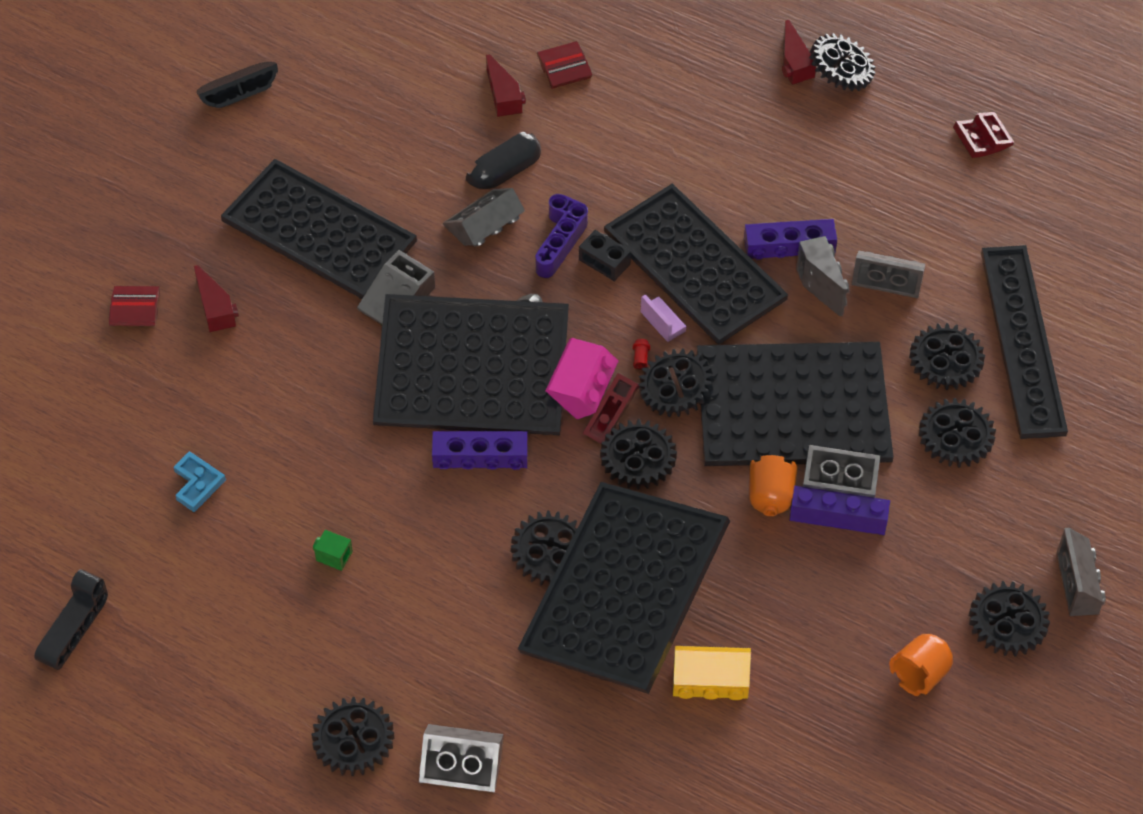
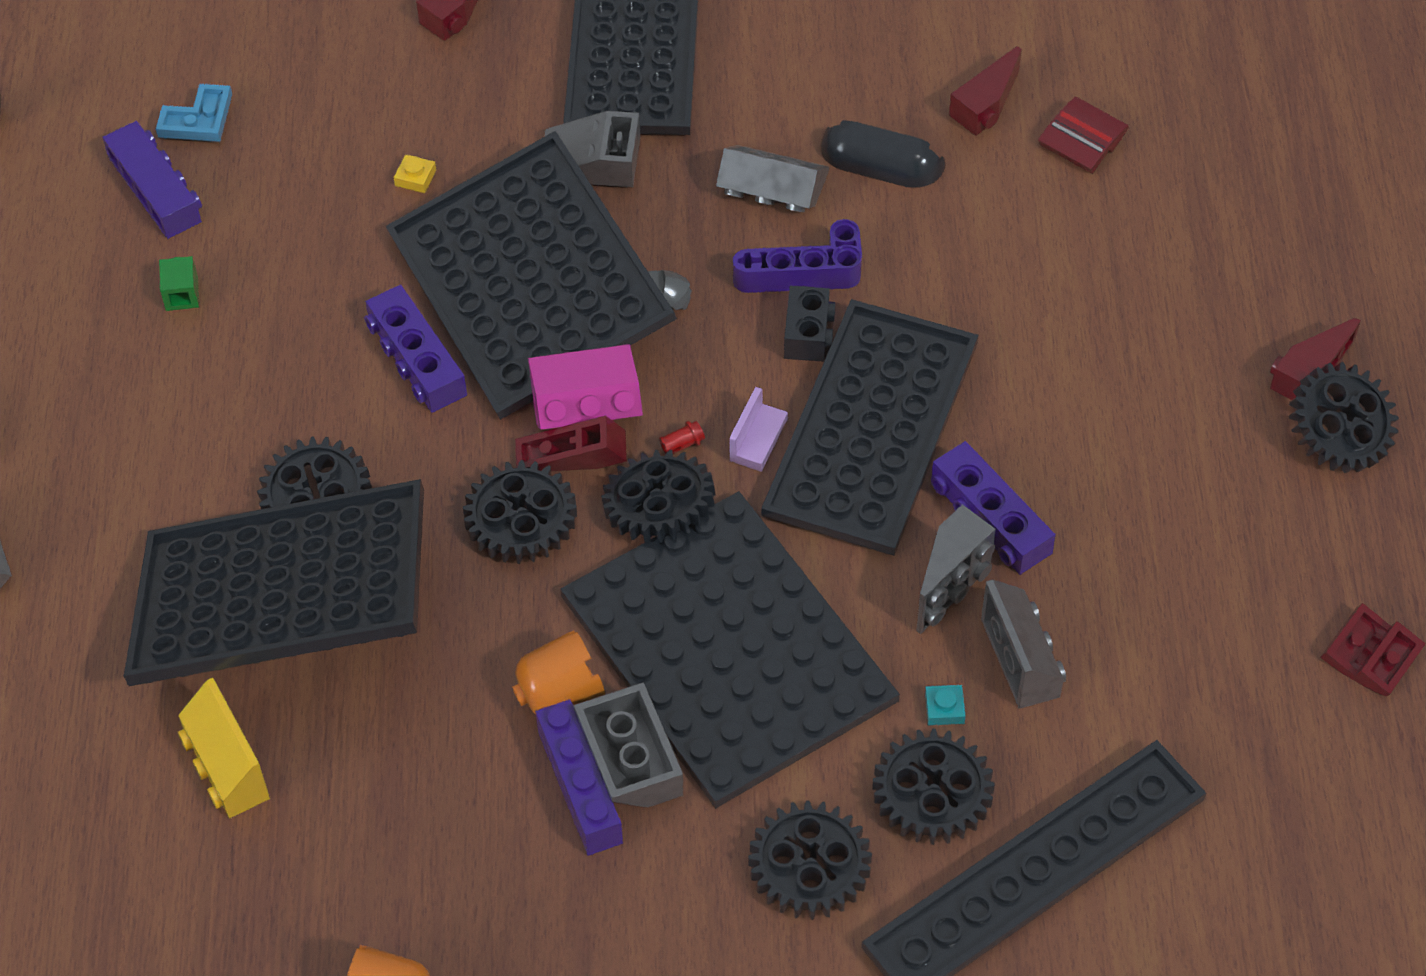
camera: 60 degrees right, 0 degrees up
(233, 528) = (152, 179): none -> dark purple brick
(336, 390) = (415, 173): none -> yellow plate
(897, 327) = (945, 705): none -> teal plate

